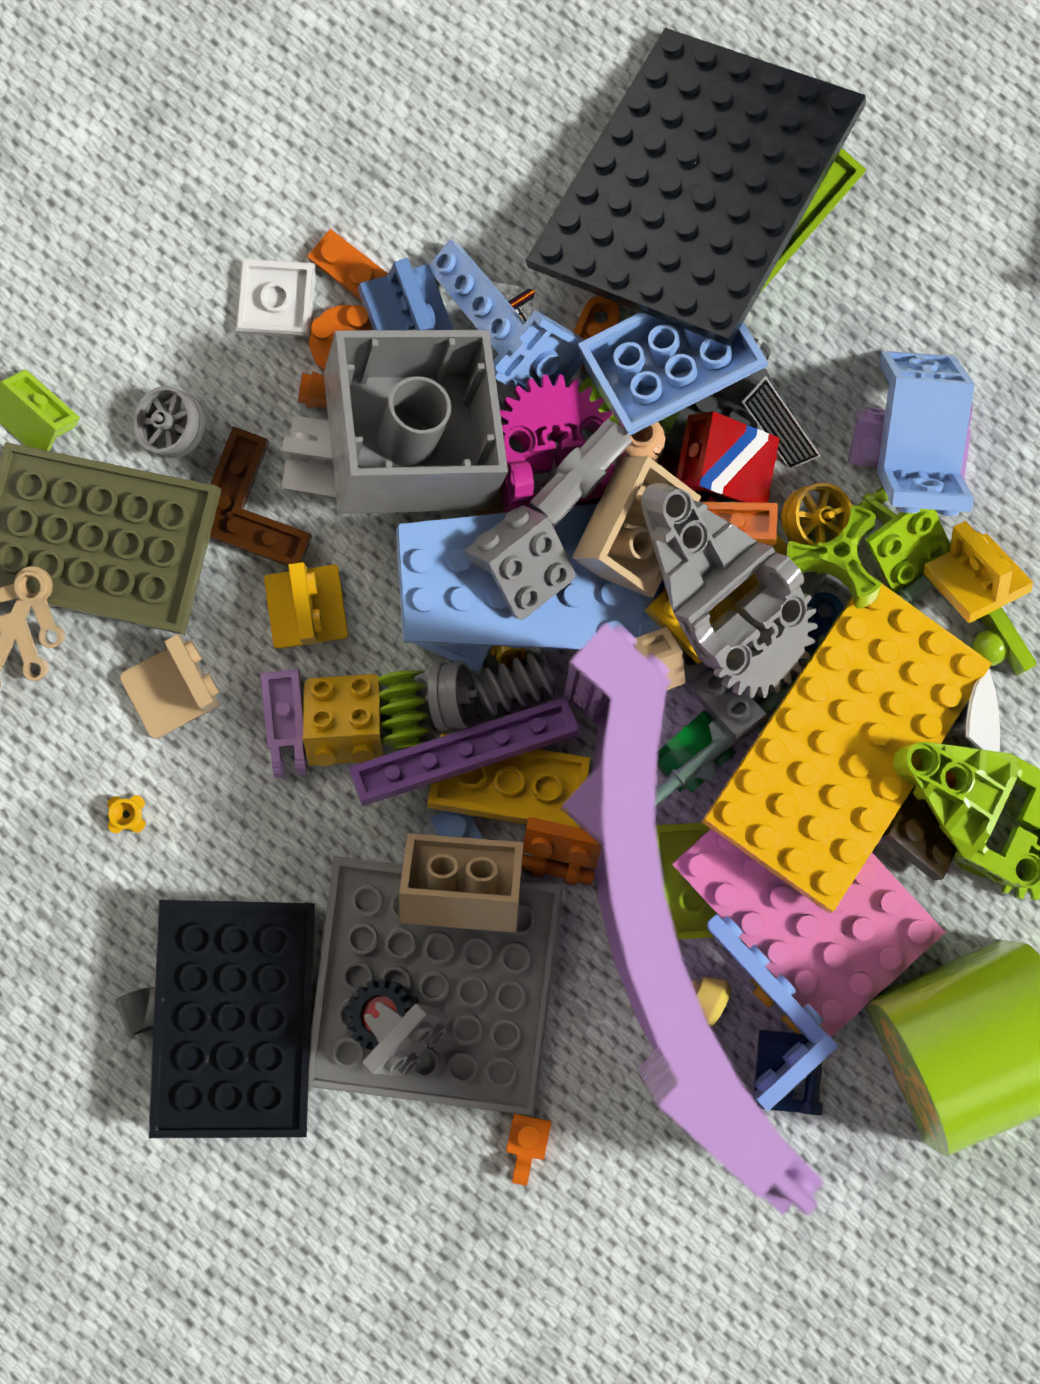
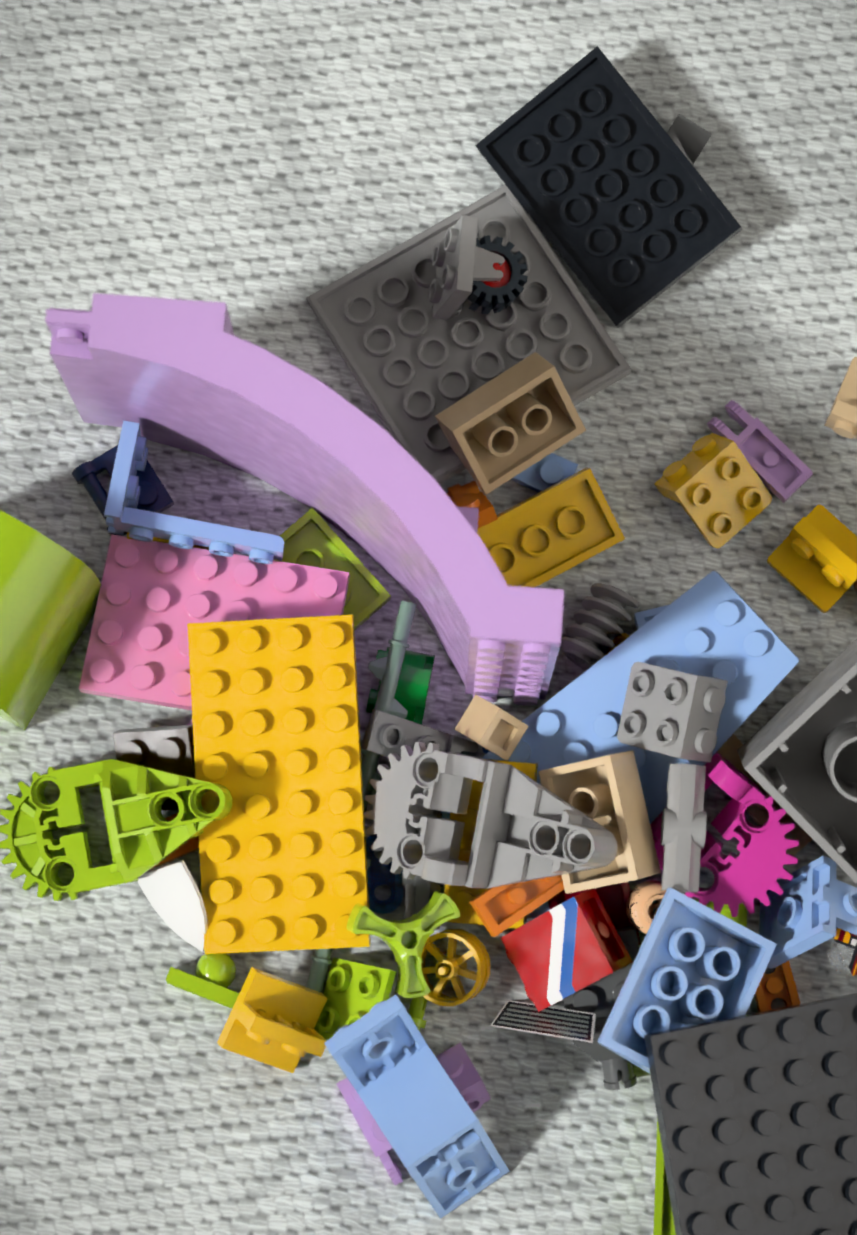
camera: 140 degrees right, 5 degrees down
(118, 821) = (831, 272): yellow plate -> none
(402, 709) = (669, 531): lime piece -> none
(451, 695) = (641, 570): light grey wheel -> none
(463, 751) = (606, 513): medium lavender plate -> none
(527, 1140) = (295, 275): orange plate -> none
(712, 996) = (236, 491): light yellow cone -> none

